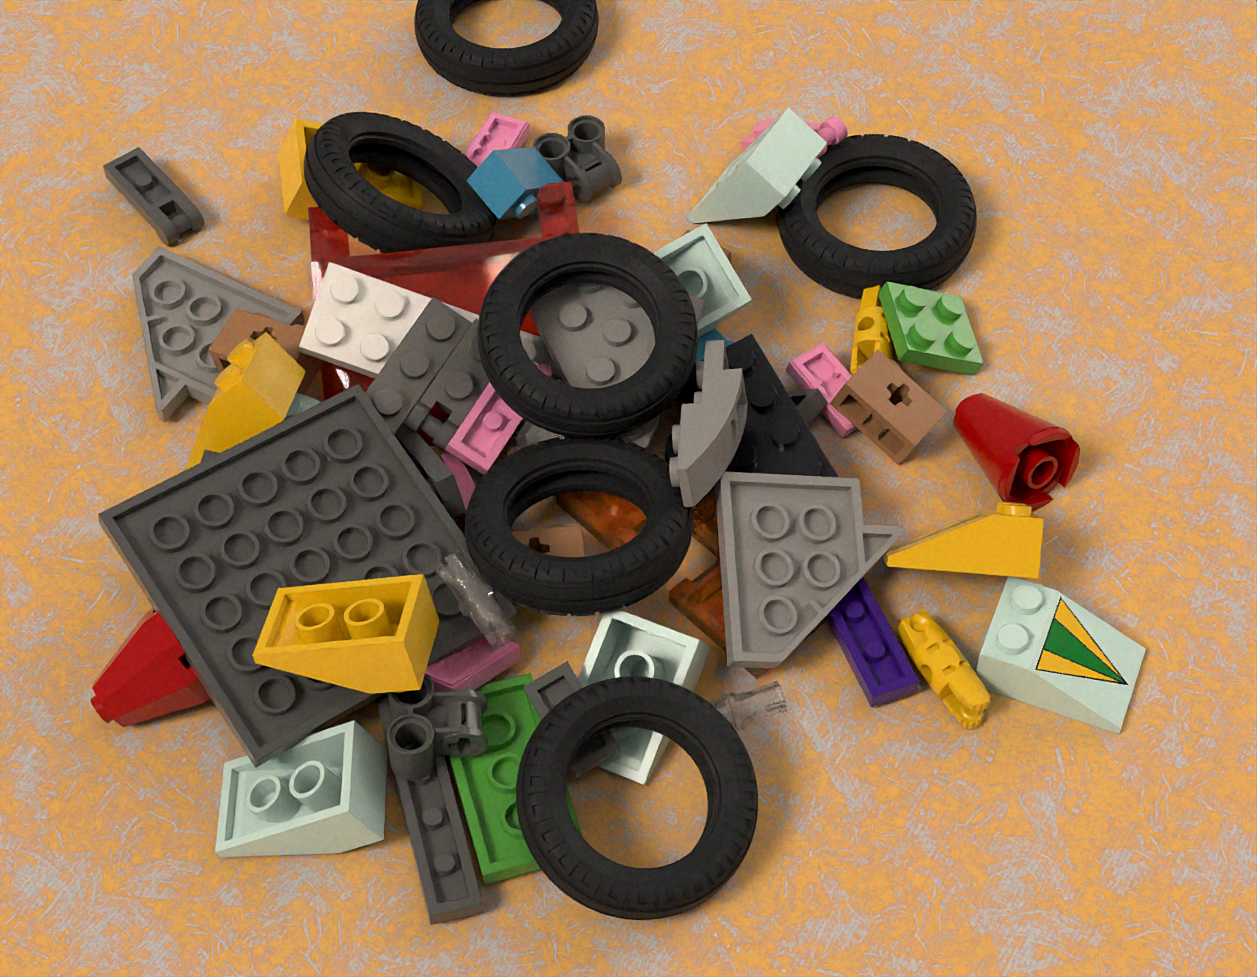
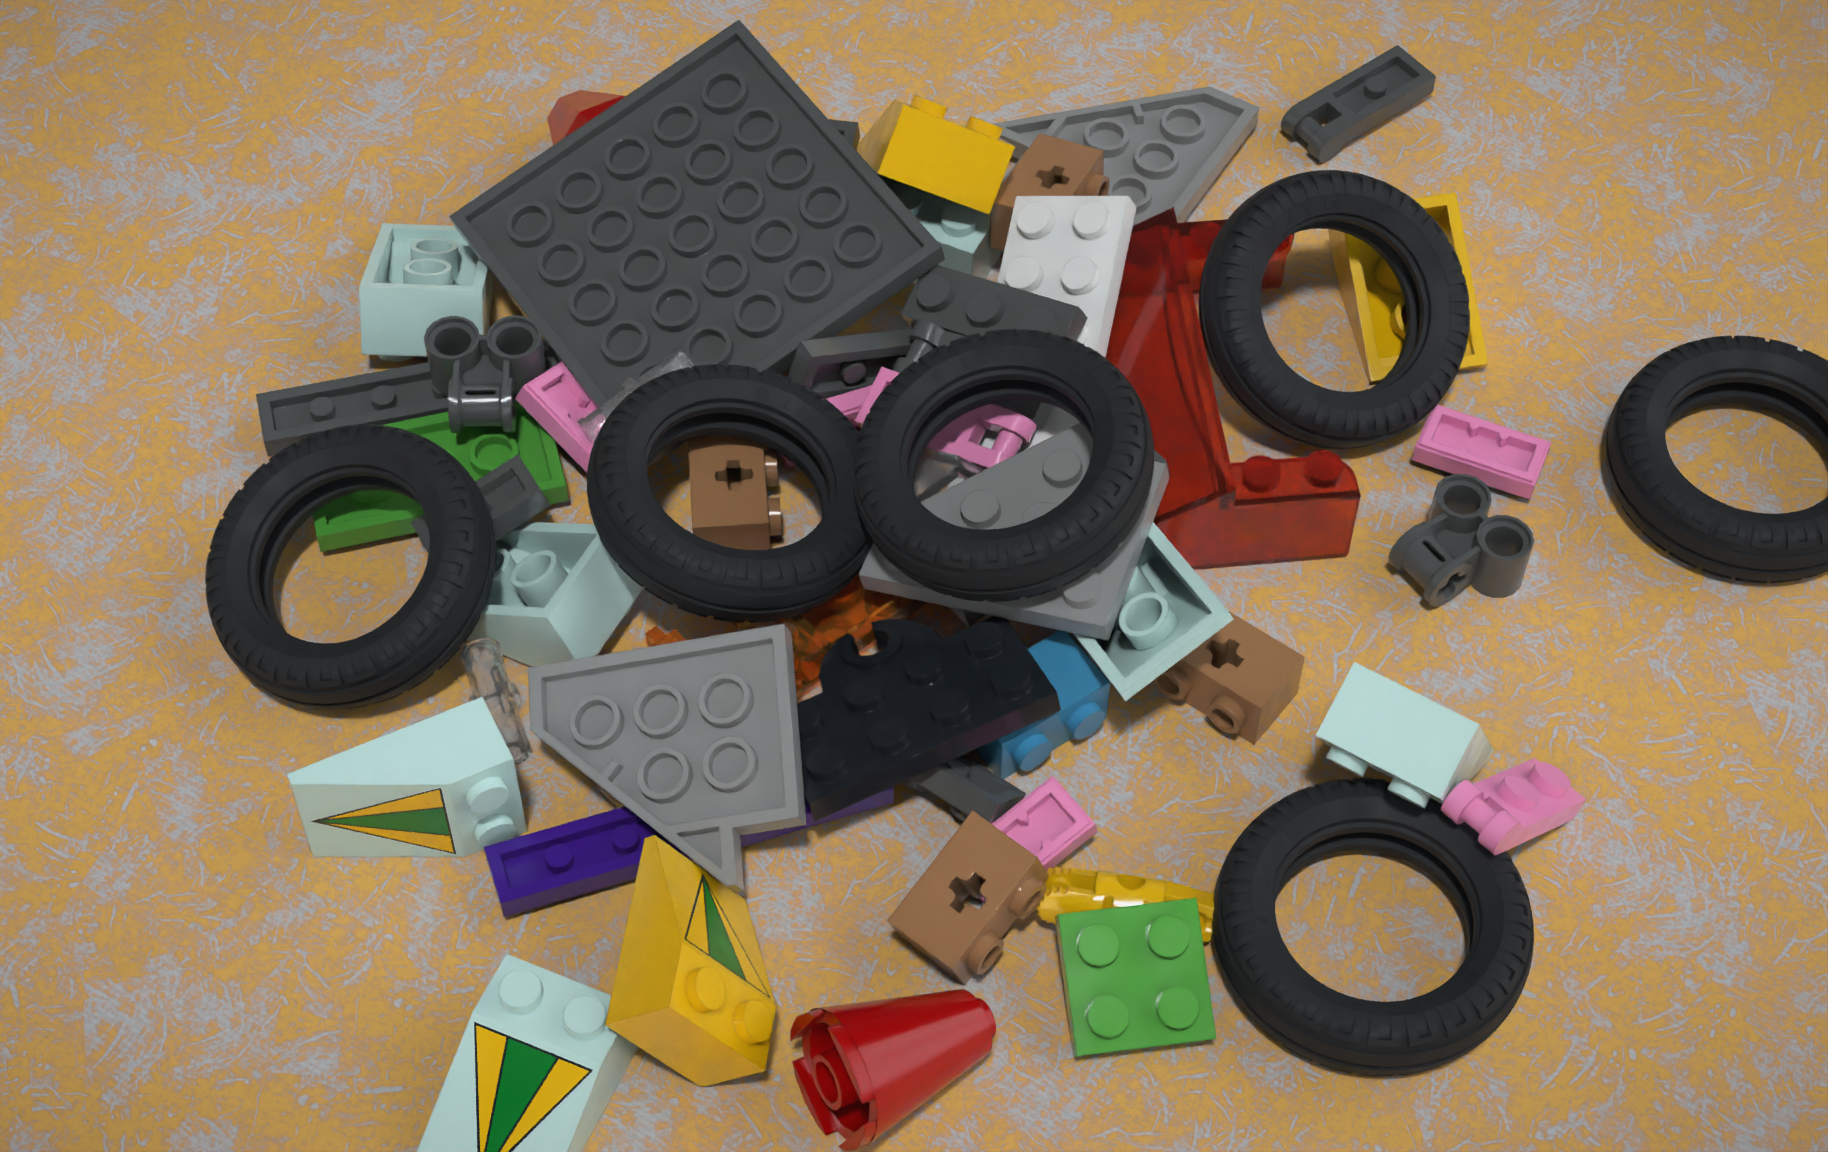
camera: 90 degrees right, 0 degrees up
(353, 633) = (569, 262): yellow slope -> none
(511, 181) = (1380, 445): dark azure brick -> none
(709, 426) = (837, 606): light grey slope -> none
(835, 719) = (415, 791): none -> light aqua slope
(945, 669) = (537, 935): yellow hinge -> none

